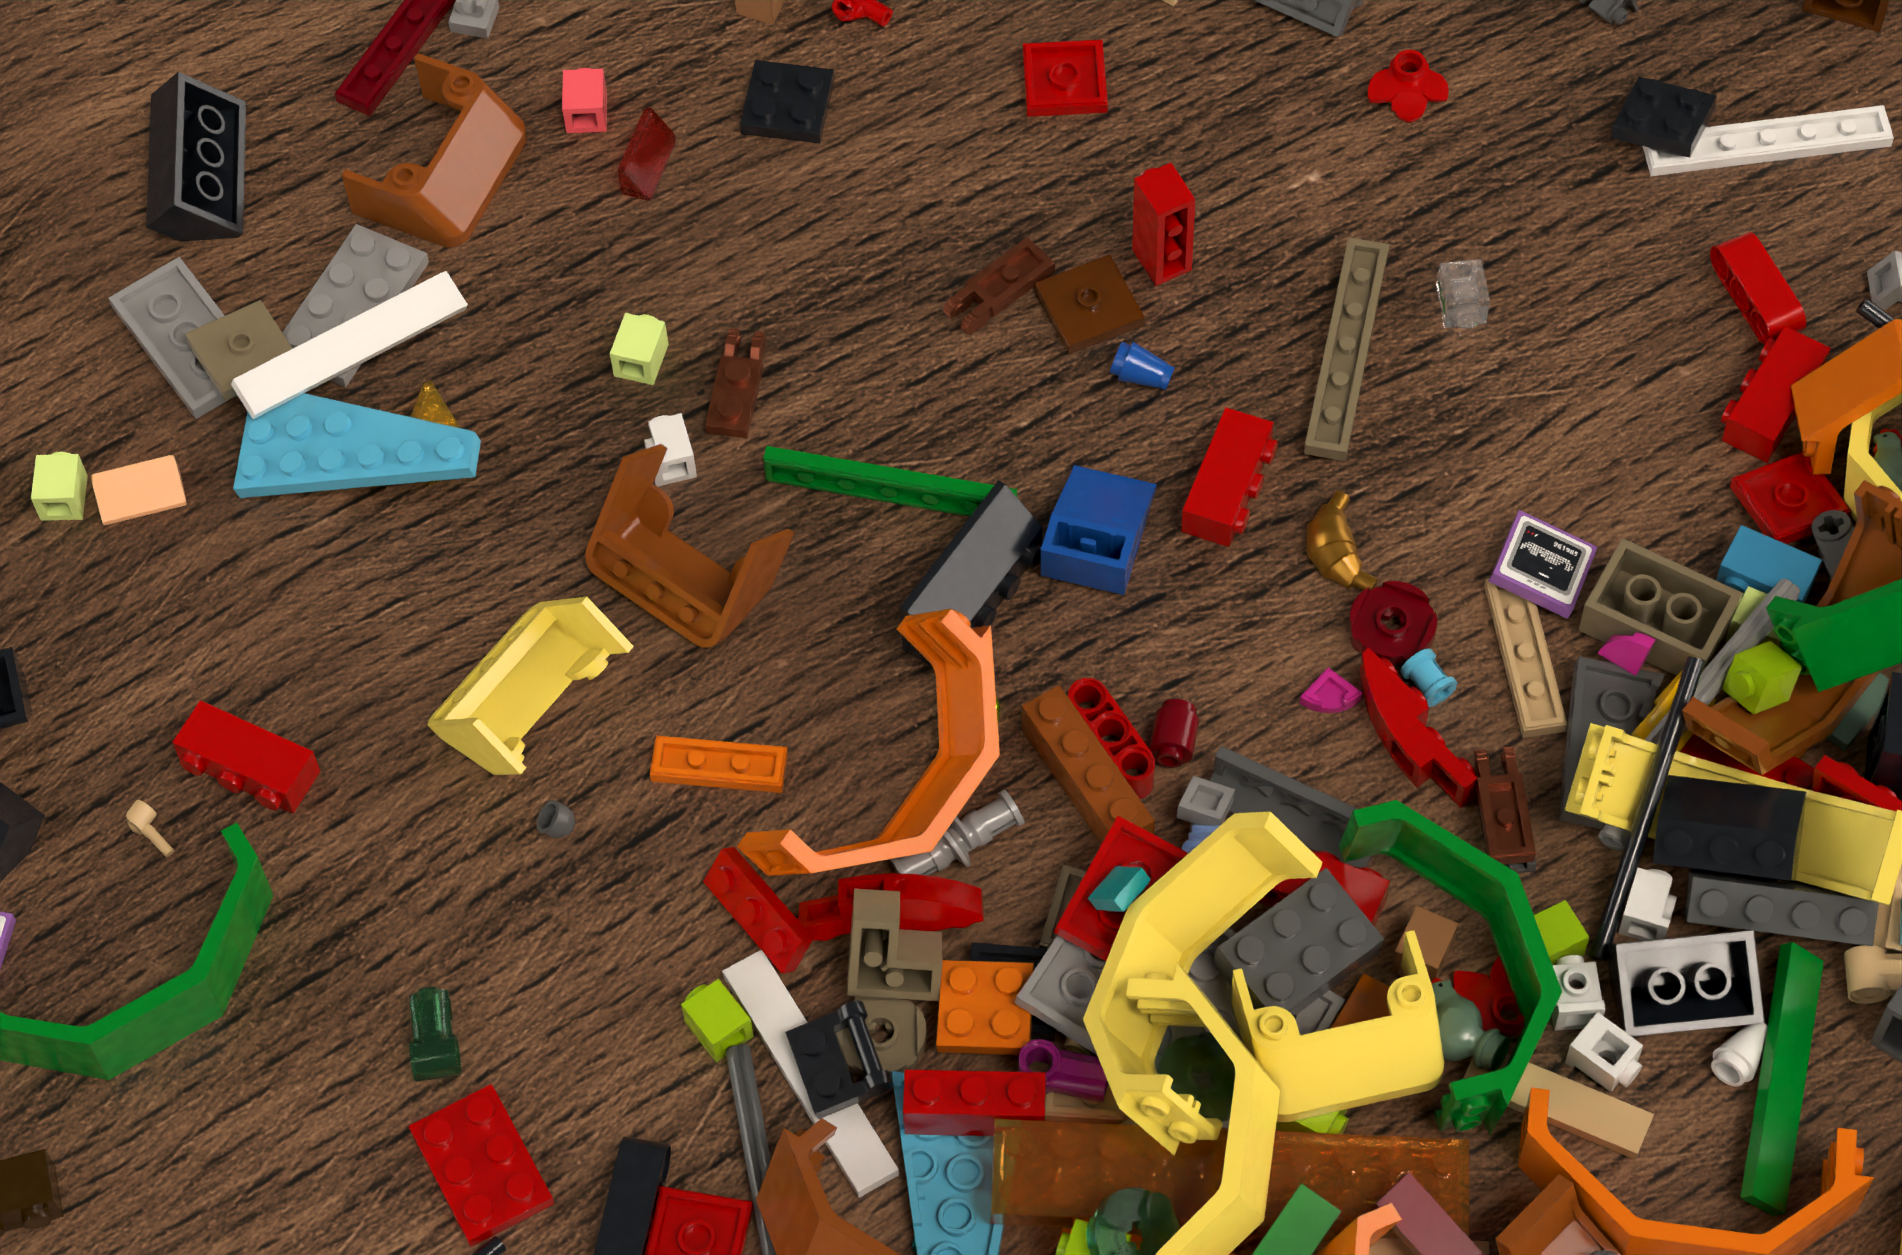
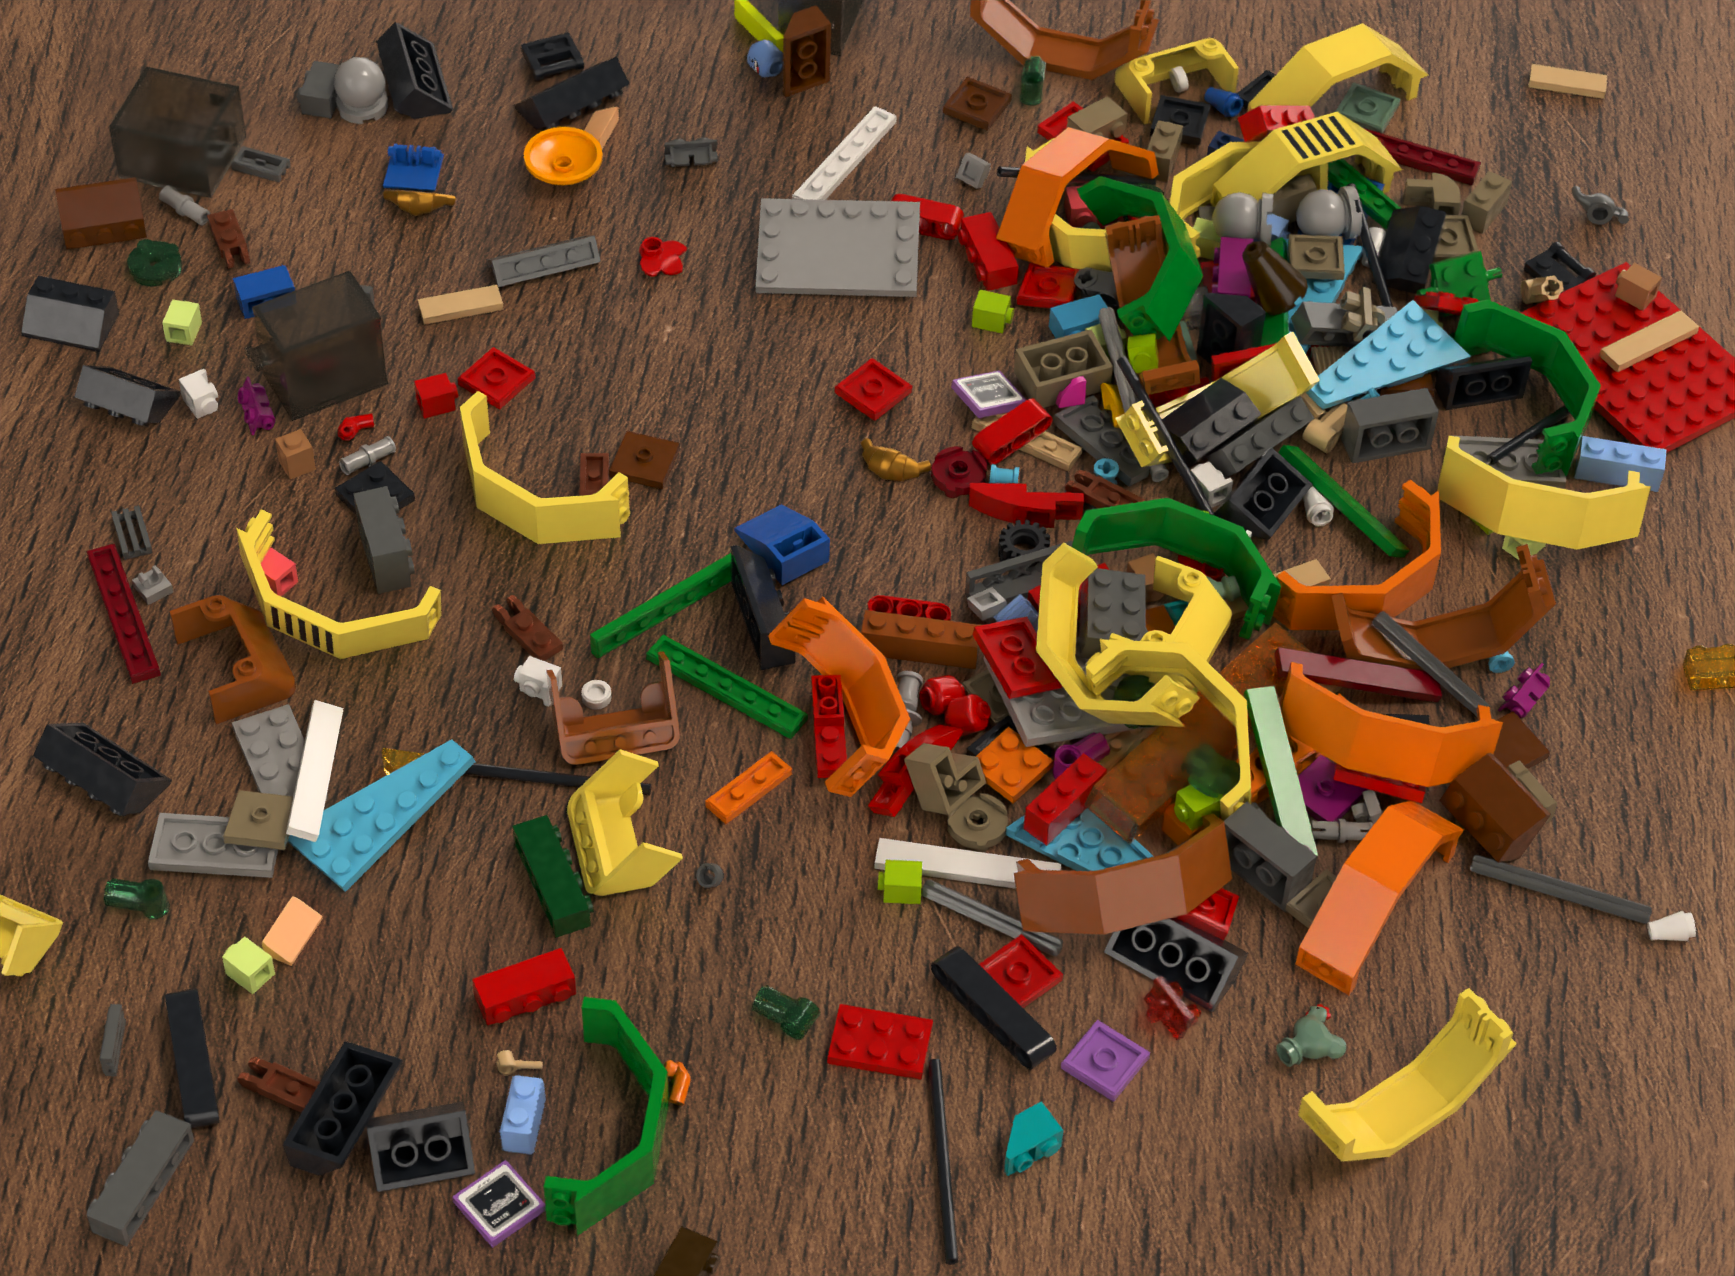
camera: 55 degrees left, 10 degrees down
(62, 324) = (145, 896): none -> clear green piece
(77, 885) = (522, 1114): none -> light blue brick
(253, 1004) = (681, 1081): none -> orange arm
(415, 668) = (552, 875): none -> dark green brick
(540, 542) = (536, 776): none -> black piece
(546, 63) = (321, 632): none -> light yellow panel
(639, 348) = (461, 652): yellowish green brick -> none
(646, 156) = (339, 573): clear red slope -> none
(710, 157) = (384, 539): none -> dark grey brick
(710, 518) = (596, 694): none -> white tile
(758, 910) = (858, 821): red plate -> none
(825, 1065) = (978, 851): black plate -> none
(829, 52) = (367, 455): none -> light grey pin
(842, 635) = (729, 687): none -> green tile
(870, 780) = (828, 724): none -> red slope
(946, 322) = (536, 517): none -> light yellow panel
(973, 43) = (435, 395): none -> red brick
(1018, 906) = (968, 713): none -> red head
(1027, 858) = (938, 693): none -> red head
(1119, 888) = (1020, 649): teal tile -> none
(1141, 367) = (706, 463): blue cone -> none
(1163, 223) = (646, 388): red brick -> none
(1174, 733) = (930, 588): dark red brick -> none
(1229, 477) = (810, 473): red brick -> none
(1330, 694) = (970, 522): dark pink tile -> none
(1346, 349) = (787, 381): dark tan plate -> none
(1350, 755) = (1019, 534): none -> black tyre
(1428, 442) = (873, 389): none -> red plate
(1462, 293) = (806, 318): clear brick -> none
(1501, 631) = (1012, 431): none -> red beam
(1542, 782) = (1107, 469): none -> medium azure bush
(1605, 1039) = (1274, 549): white brick -> none
(1606, 241) = (838, 247): none -> light grey plate
(1664, 116) = (792, 179): black plate -> none
(1680, 469) = (992, 311): none -> lime brick

